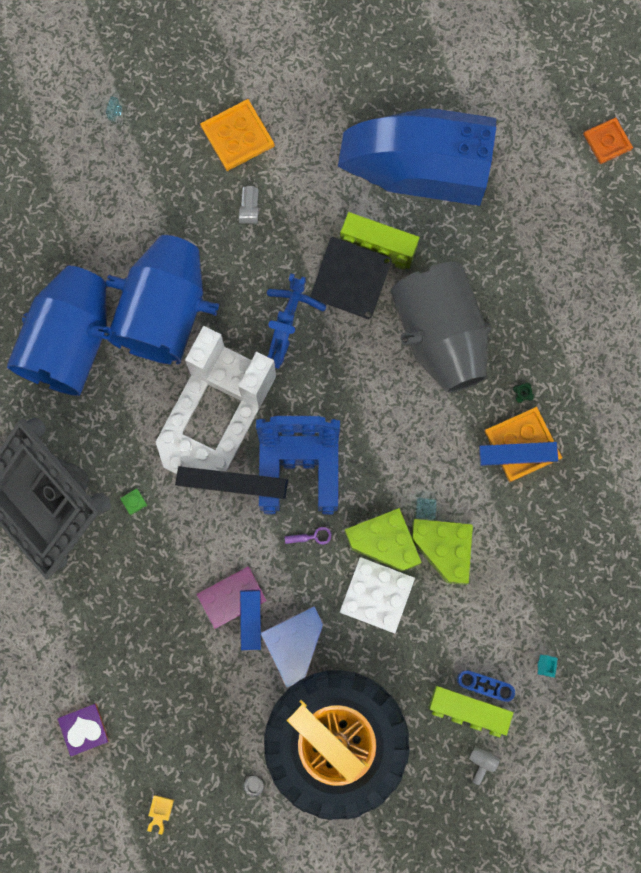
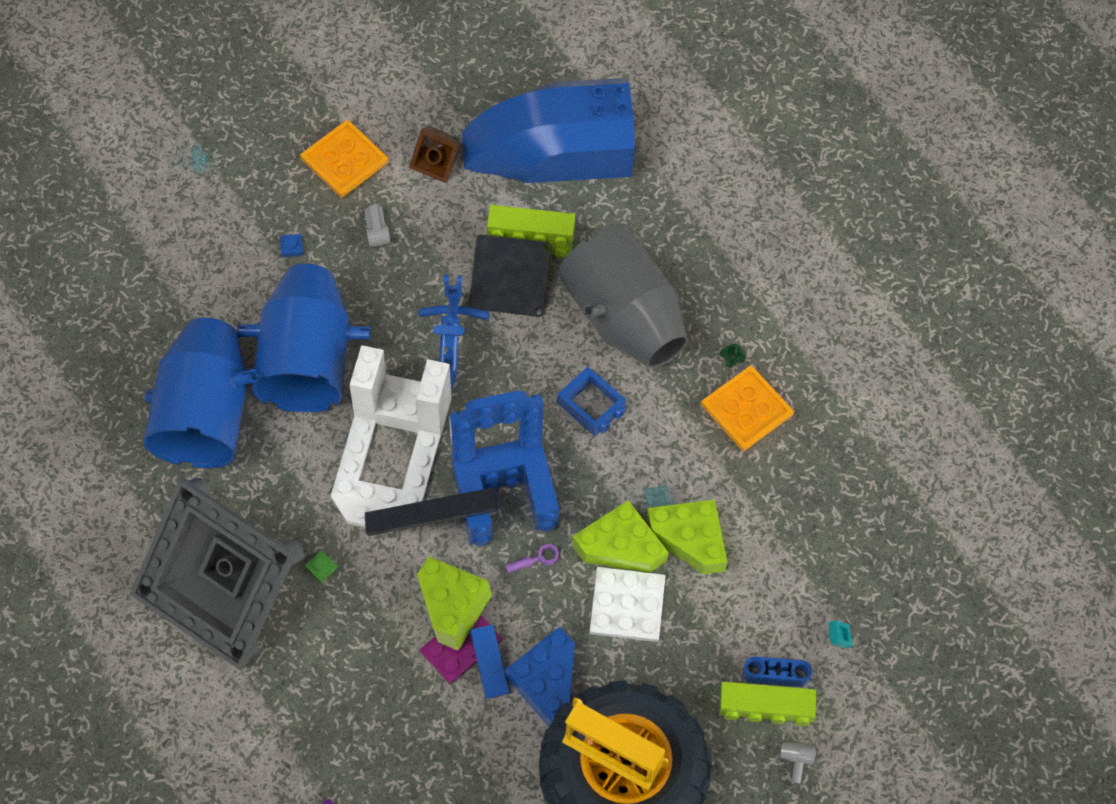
camera: 15 degrees left, 15 degrees down
(174, 206) = (291, 245): none -> blue plate
(230, 561) = (452, 600): none -> lime brick
(315, 147) = (434, 153): none -> reddish brown slope
(380, 393) = (577, 385): none -> blue window
(518, 453) = (744, 416): blue tile -> none
(608, 140) = (752, 84): orange tile -> none

